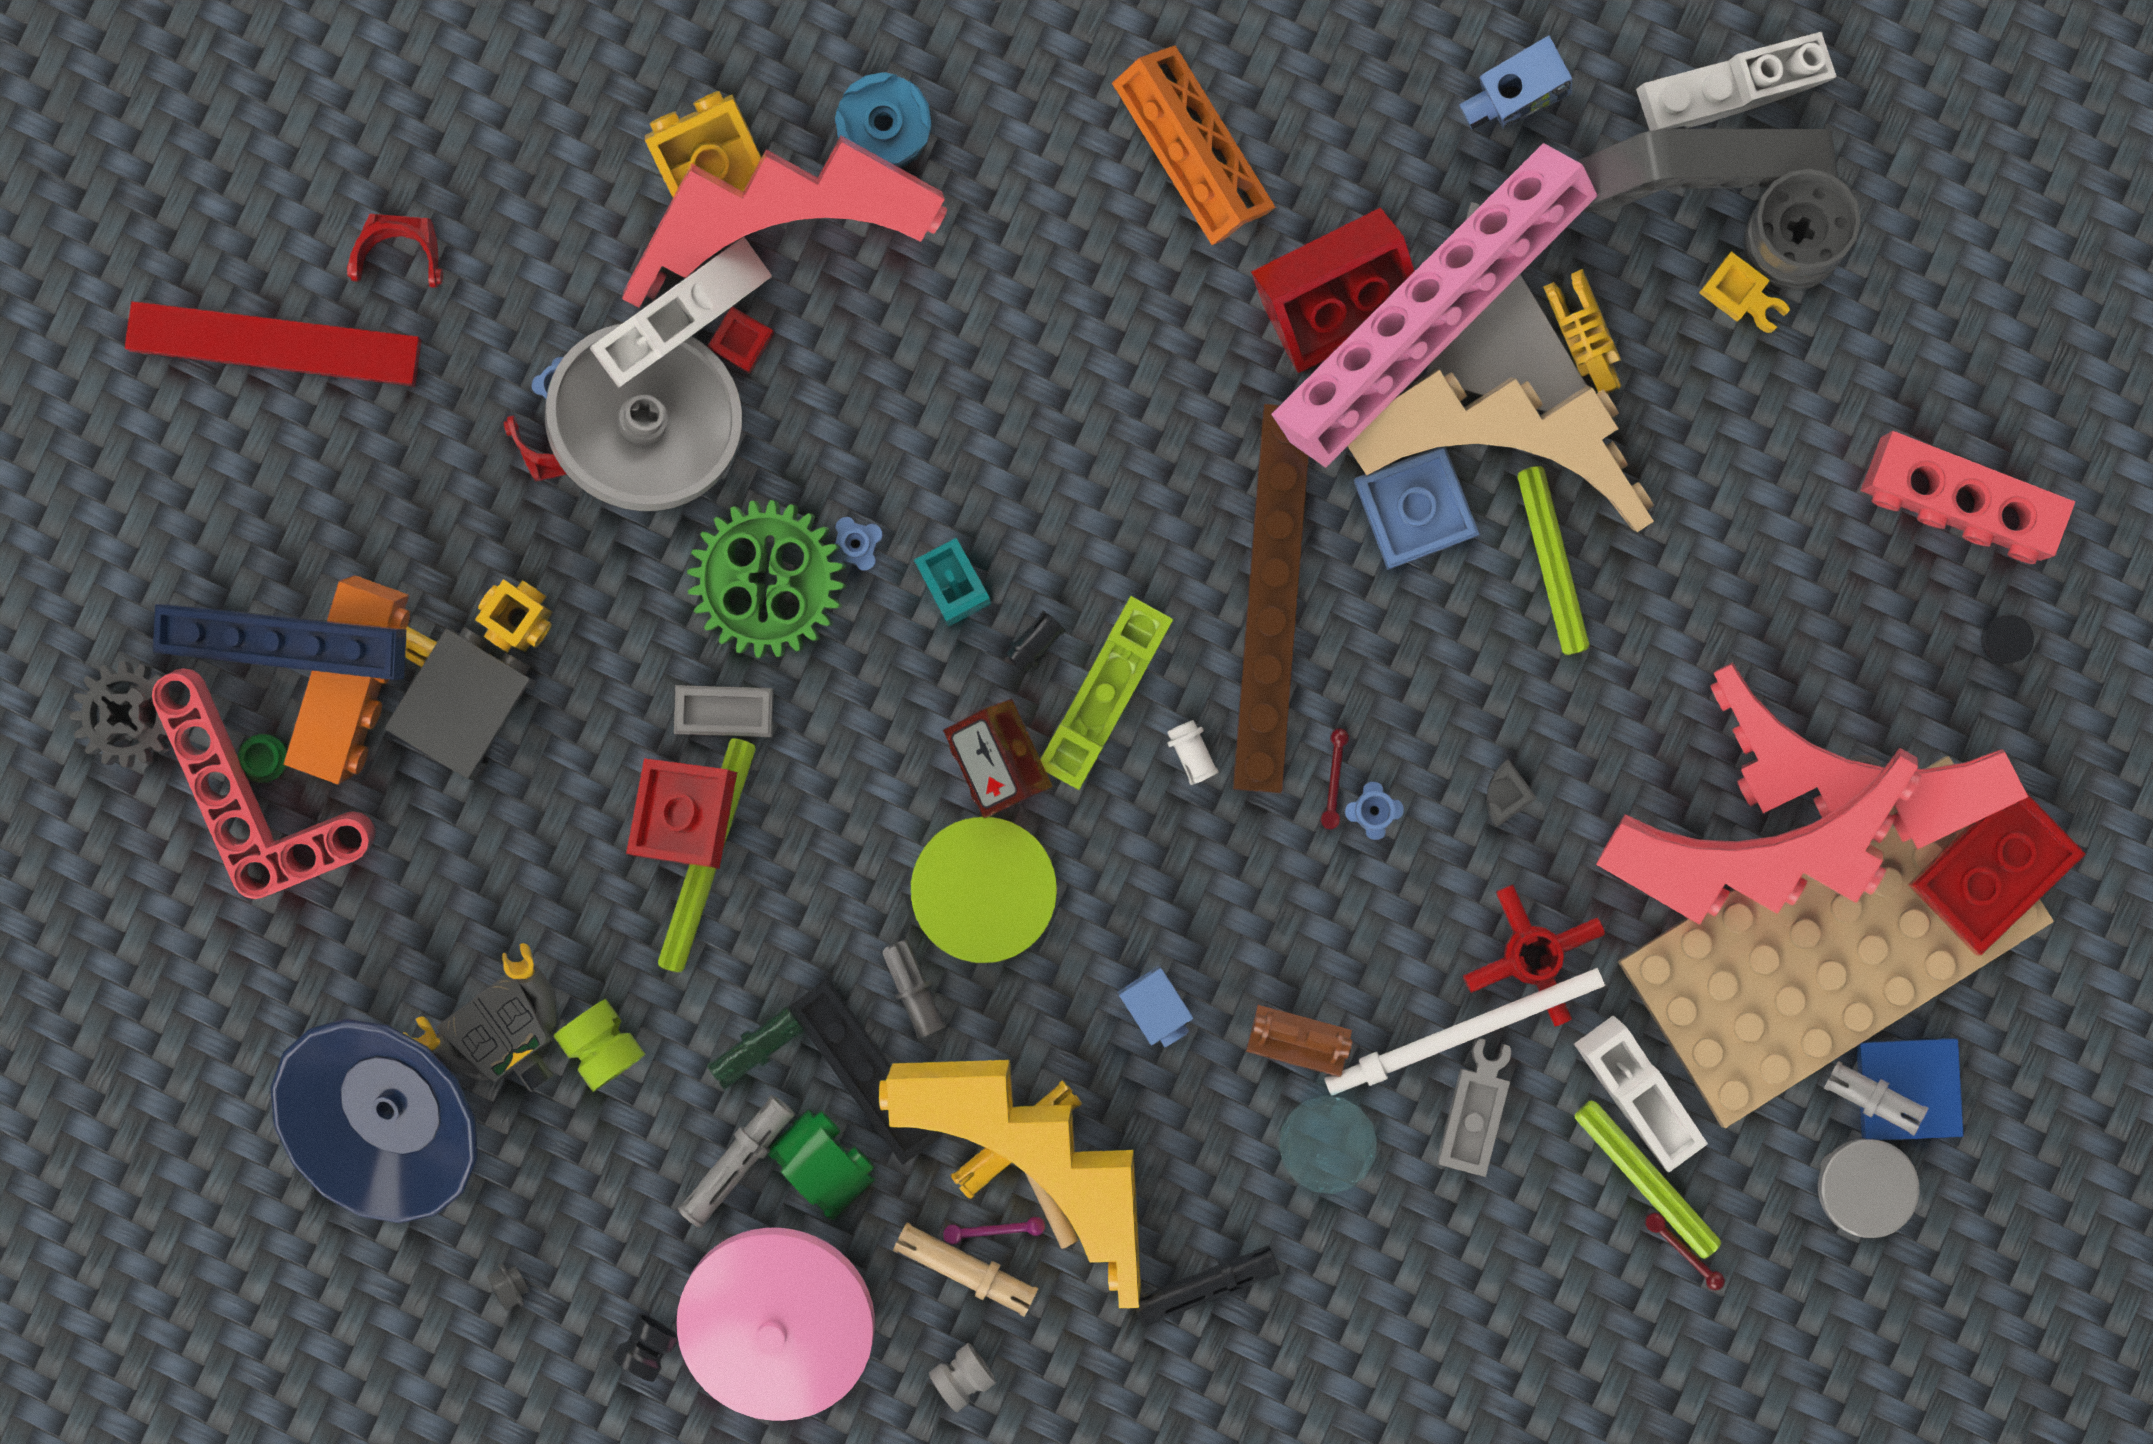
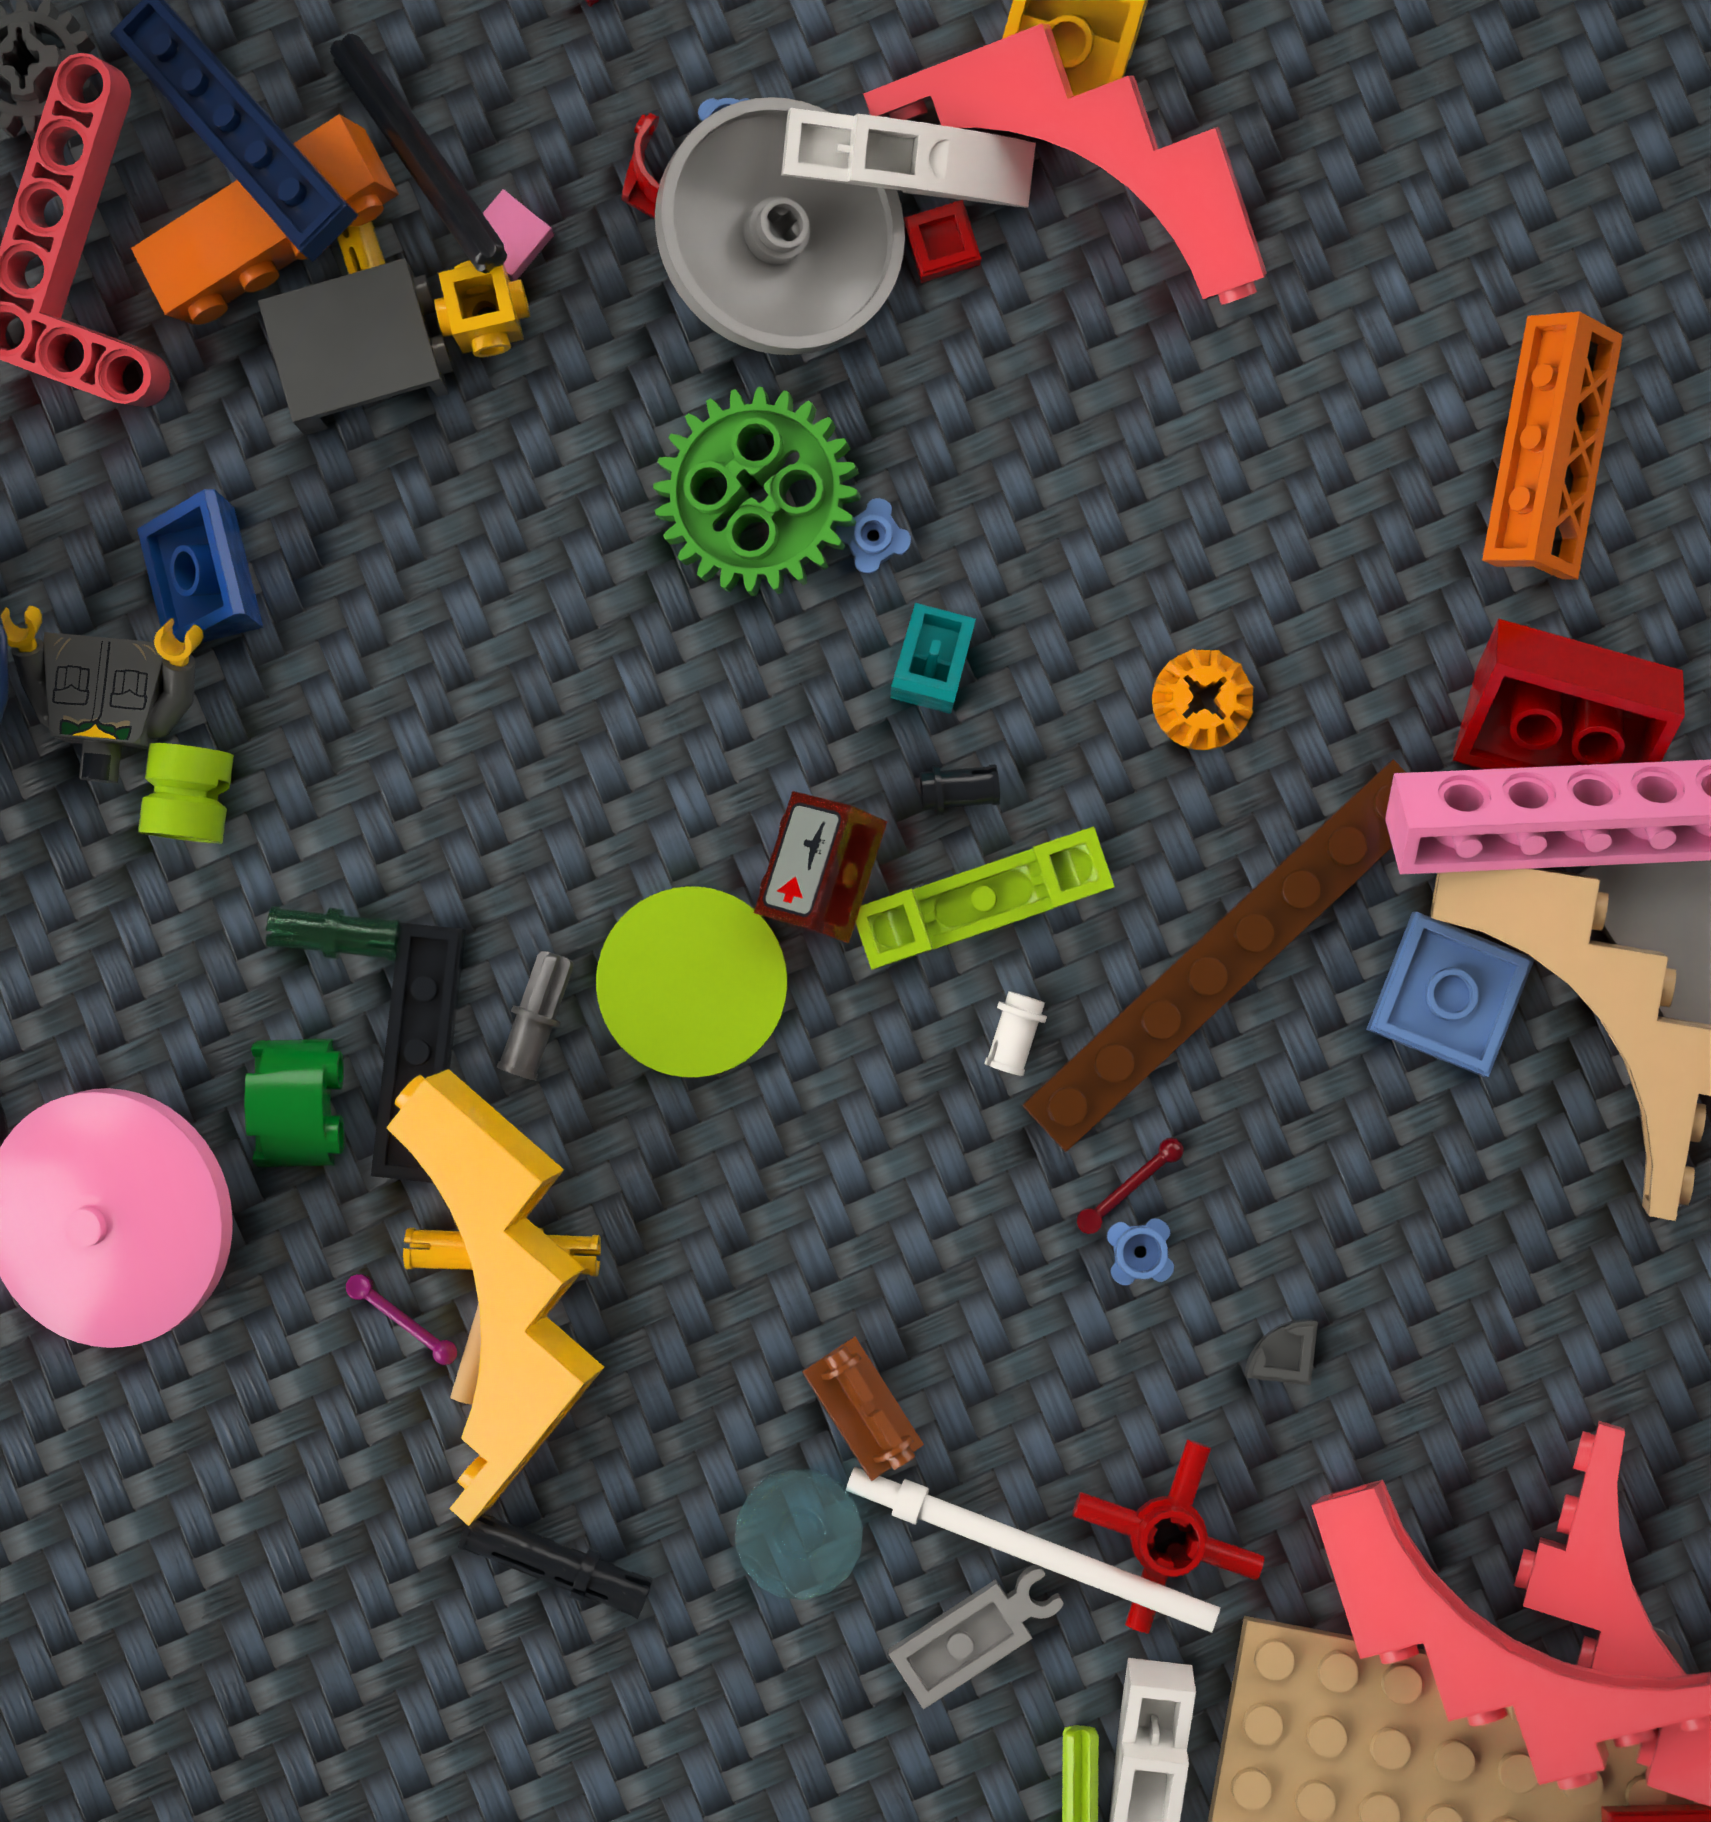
camera: 45 degrees right, 0 degrees up
(262, 758) = (119, 226): green plate -> none
(398, 561) = (418, 153): none -> black axle
(488, 912) = (200, 568): none -> blue slope
(489, 560) = (519, 230): none -> bright pink tile
(681, 813) = (468, 642): red plate -> none
(700, 878) = (456, 705): lime axle -> none
(723, 711) = (600, 582): light grey tile -> none
(748, 1146) = (197, 1028): light grey pin -> none
(891, 97) = (1292, 129): dark azure plate -> none
(962, 1377) = (239, 1434): light grey wheel -> none
(966, 1269) = (339, 1333): tan pin -> none
(1108, 481) = (1202, 729): none -> light orange gear
(1156, 1007) = (752, 1250): medium blue brick -> none
(1553, 560) = (1538, 1168): lime axle -> none

